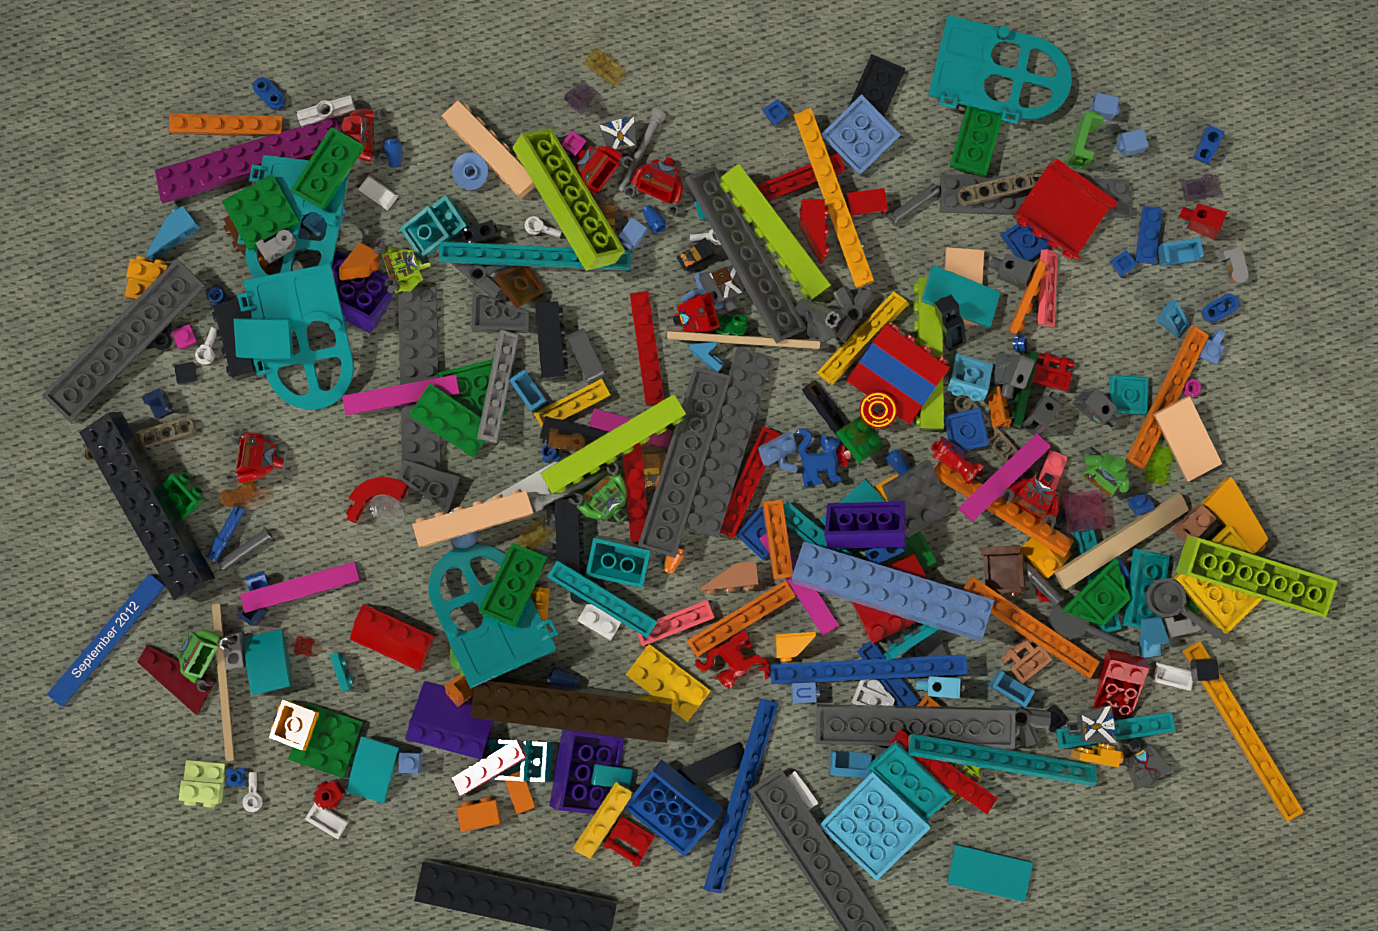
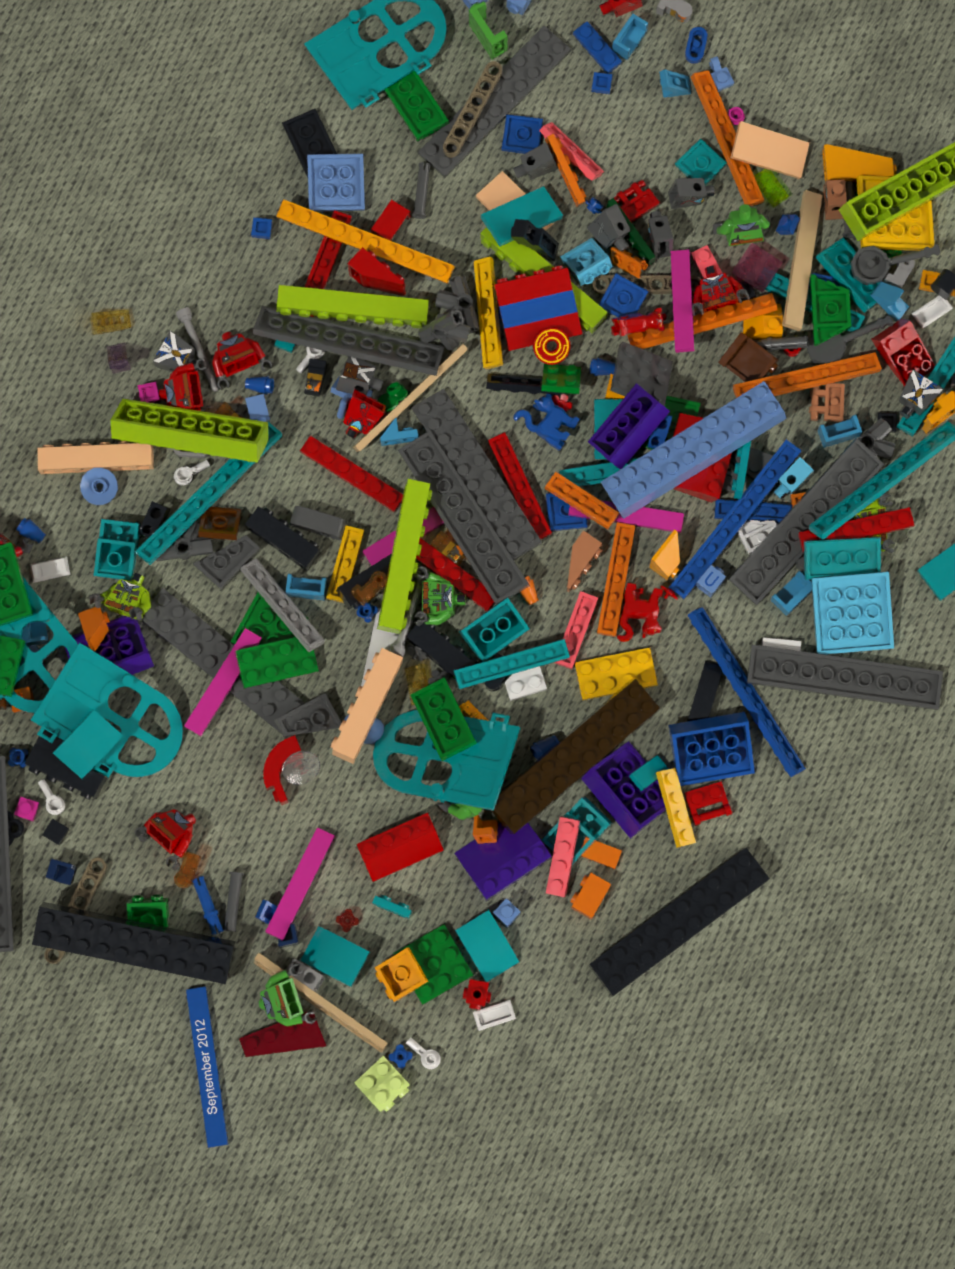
camera: 45 degrees left, 5 degrees down
(278, 246) = (28, 673): light grey leg -> none
(777, 450) = (515, 444): medium blue plate -> none
(1063, 209) = (524, 88): red panel -> none

